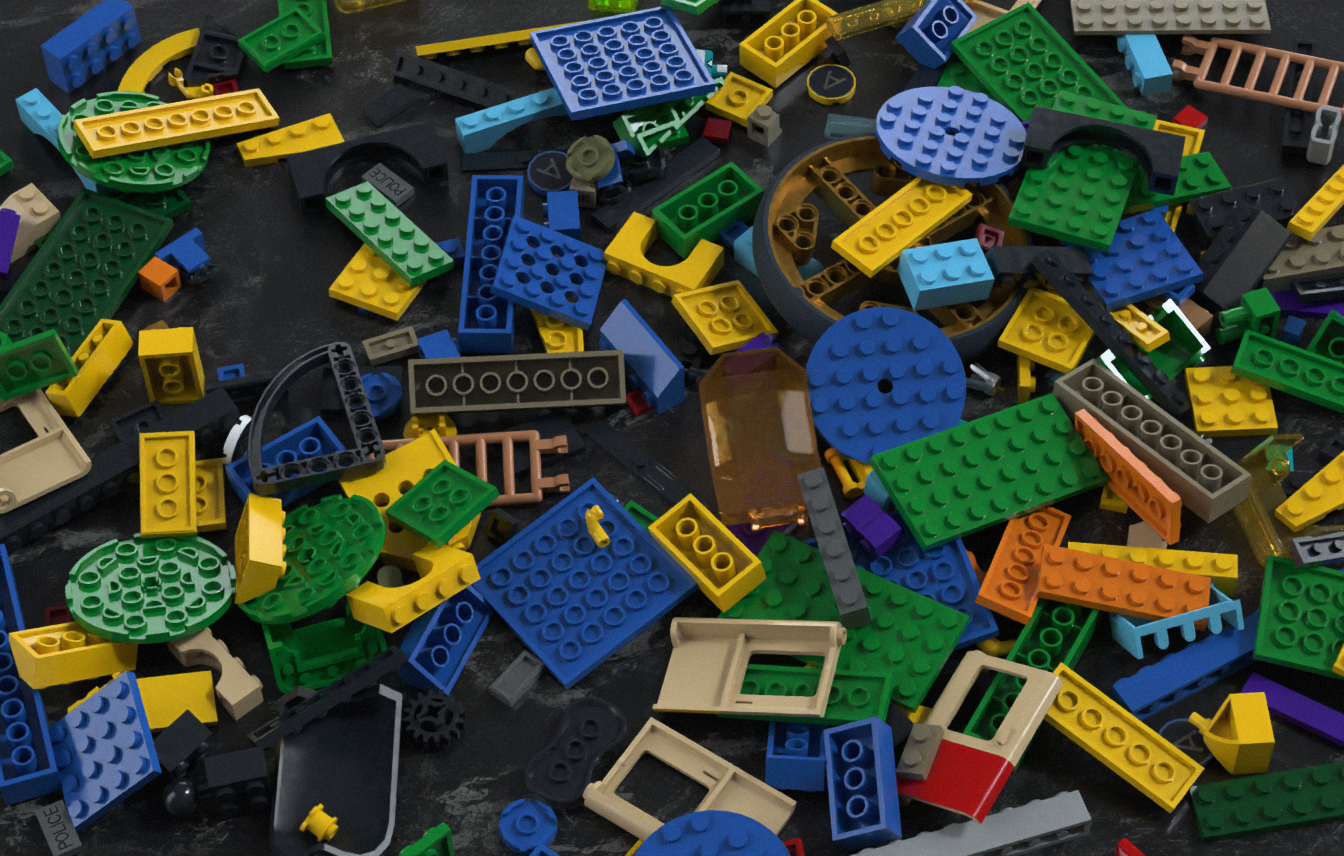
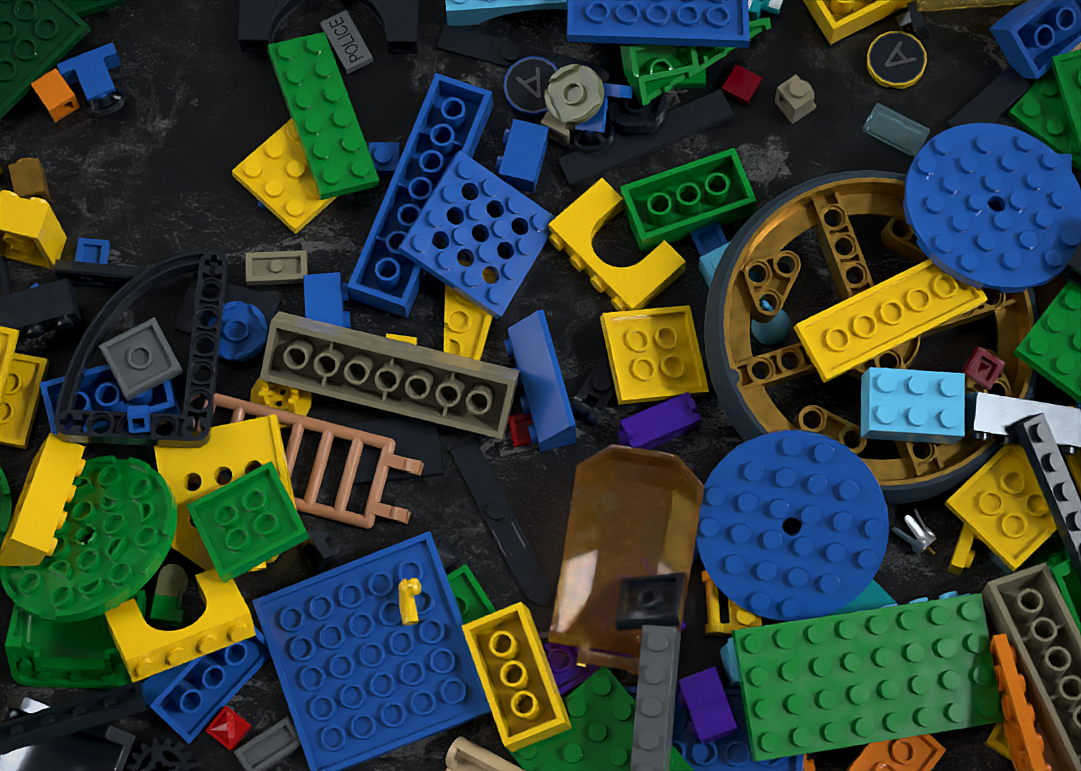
camera: 20 degrees right, 20 degrees up
(237, 441) = (63, 350): tile -> none
(306, 425) = (141, 359): none -> dark grey tile
(324, 455) = (138, 412): none -> blue piece
(477, 674) = (228, 728): none -> red tile
(738, 98) = (782, 49): yellow plate -> none
(784, 472) = (651, 601): none -> black tile

